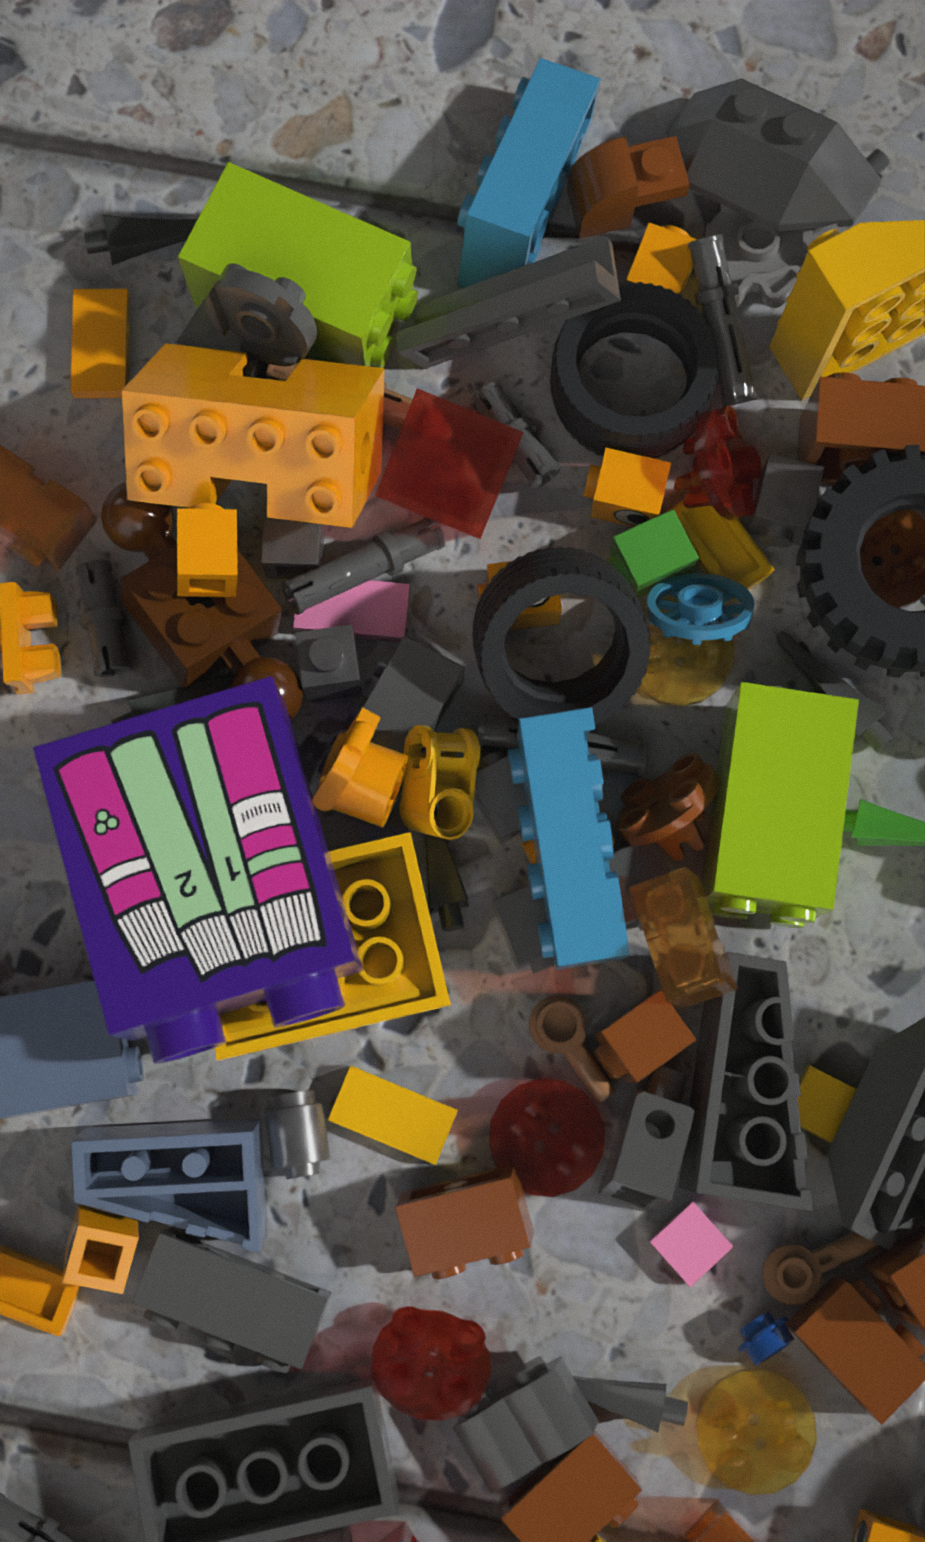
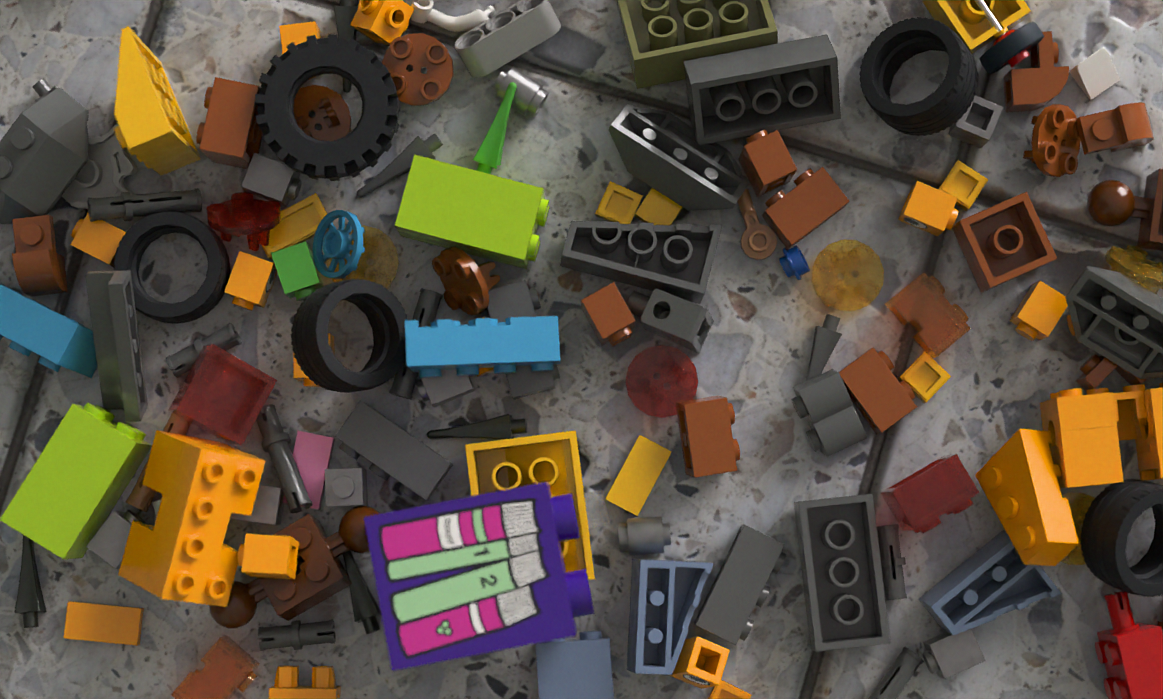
camera: 85 degrees left, 5 degrees up
(263, 314) = (114, 503): dark grey plate -> none
(361, 775) = (424, 471): light orange piece -> none
(440, 780) = (435, 424): yellow piece -> none
(458, 1370) = (793, 449): clear red plate -> none
(560, 1027) = (595, 365): medium nougat plate -> none
(682, 938) = (551, 282): clear orange brick -> none
(690, 1243) = (734, 300): bright pink tile -> none
(821, 1038) = (618, 204): none -> yellow tile

